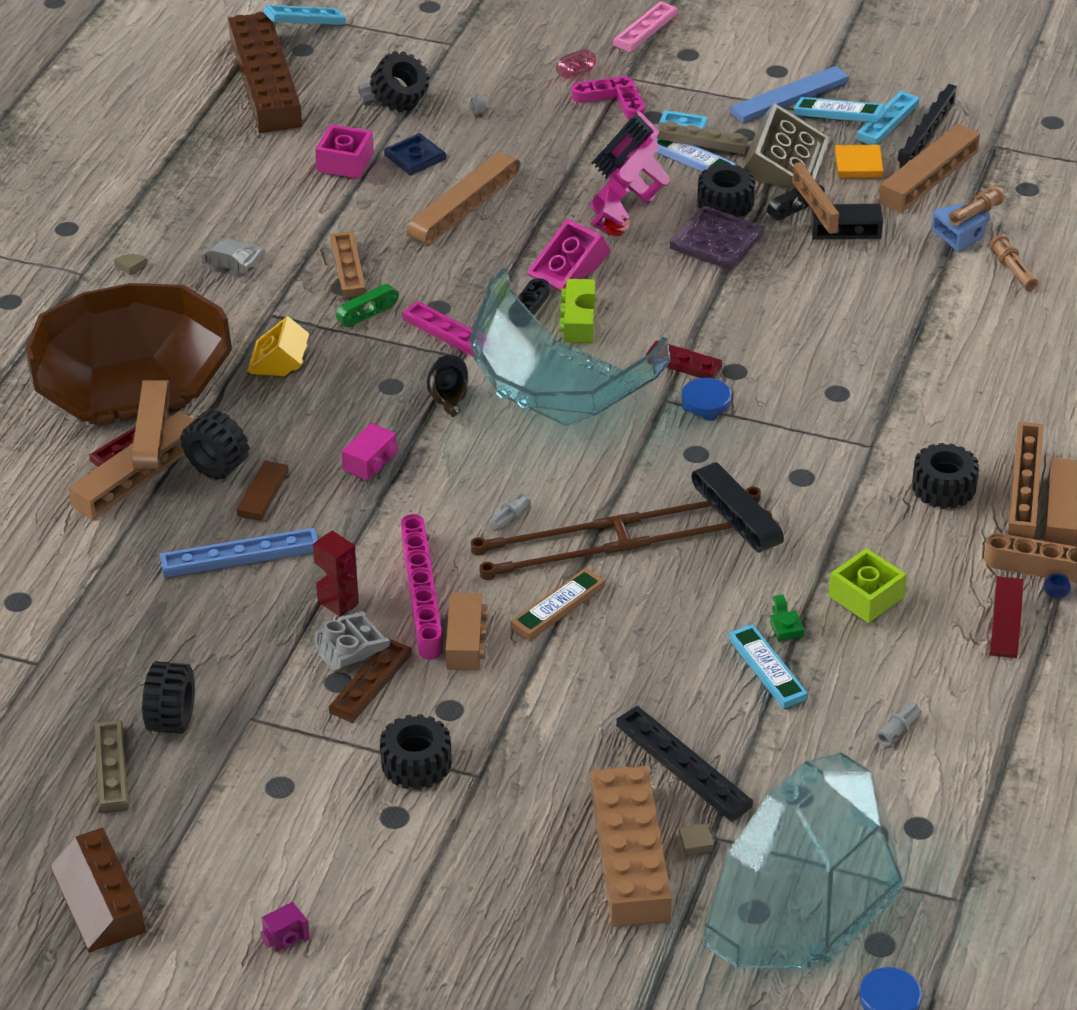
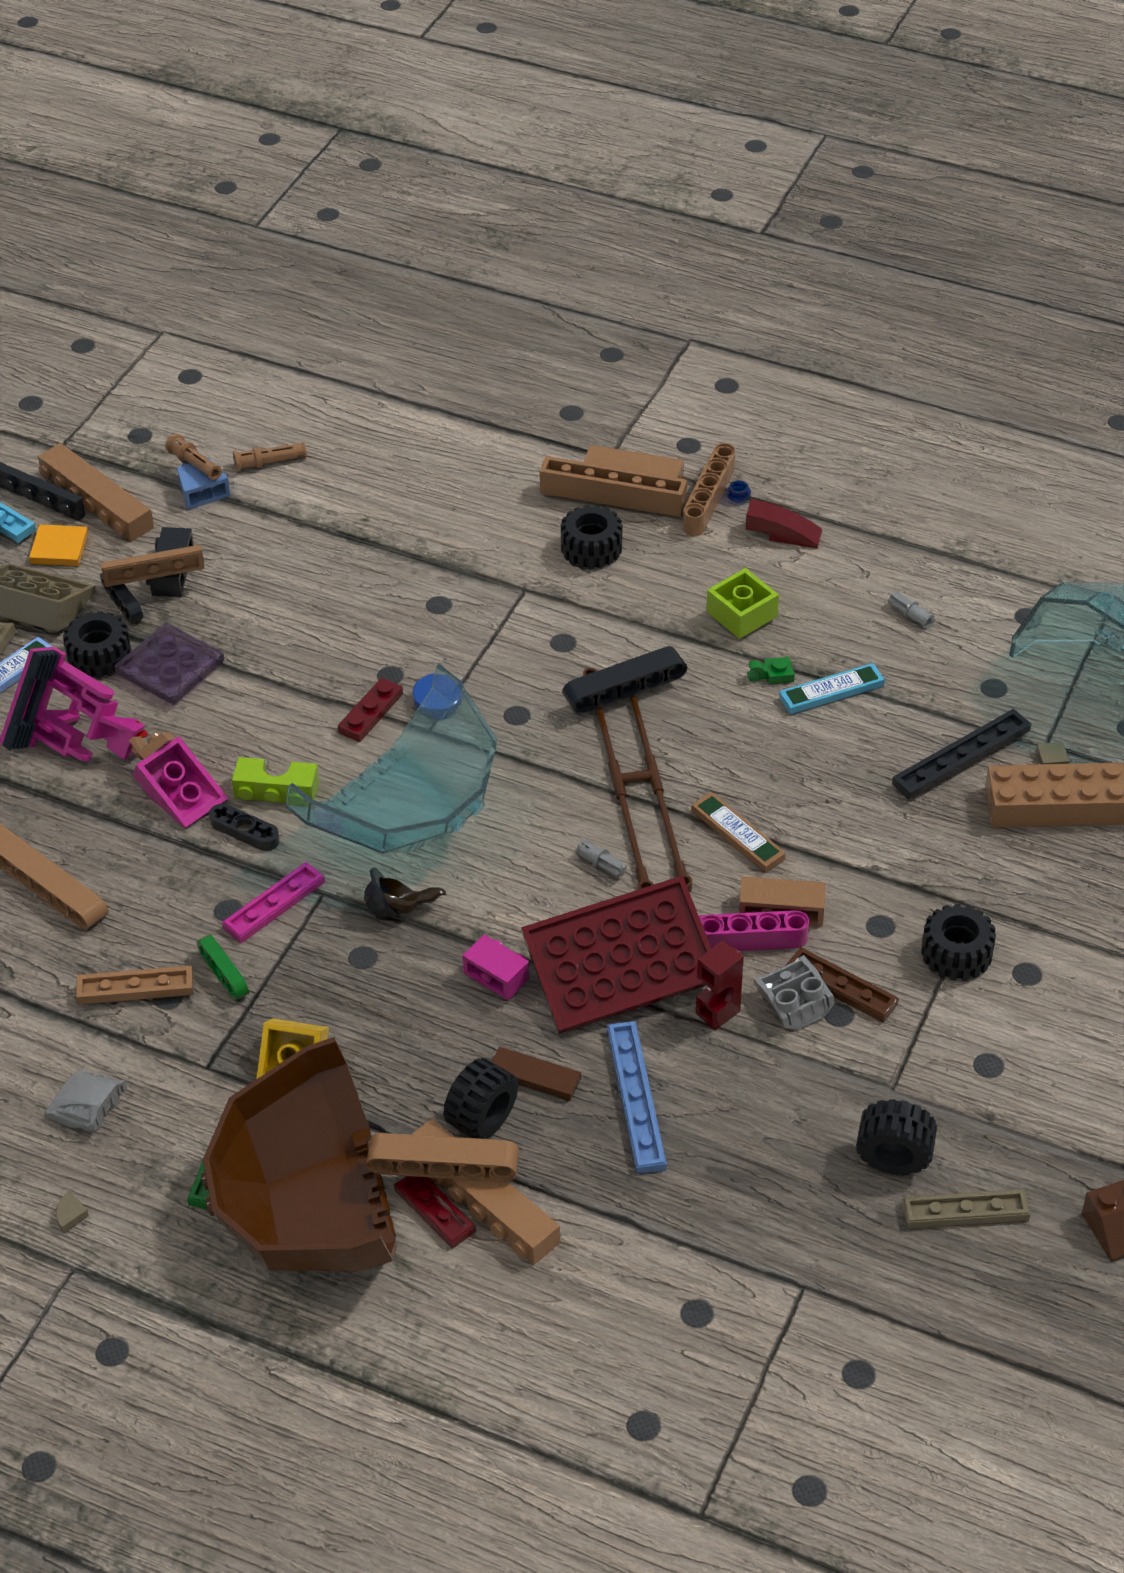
camera: 85 degrees left, 5 degrees up
(383, 515) = (618, 954): none -> dark red plate
(595, 222) = (155, 742): none -> medium nougat bracket

